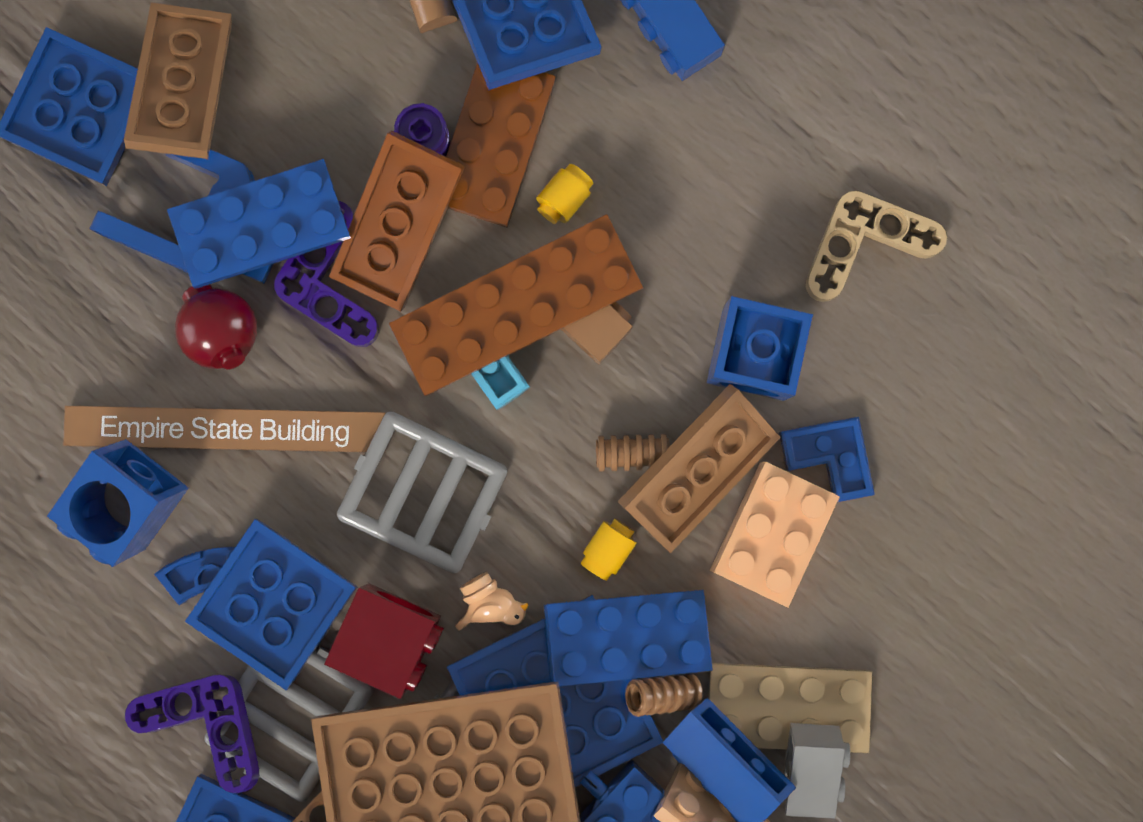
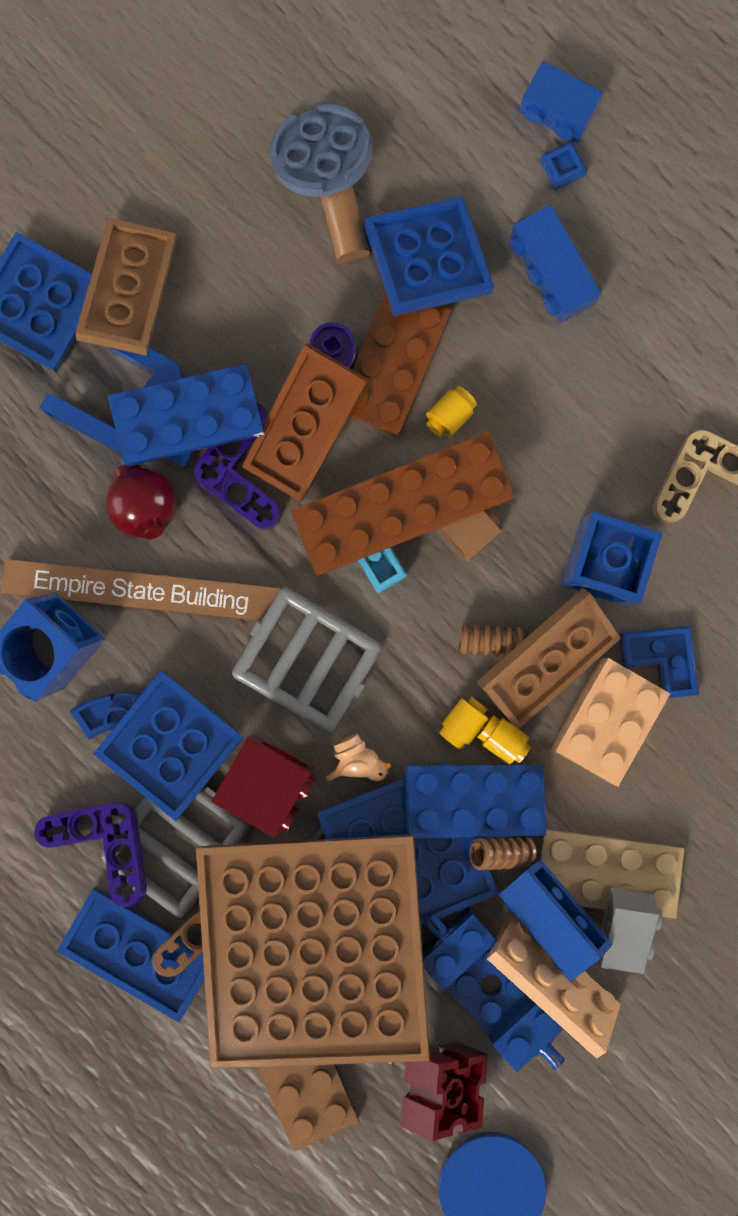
camera: 10 degrees right, 0 degrees up
(656, 565) = (504, 740): none -> yellow brick

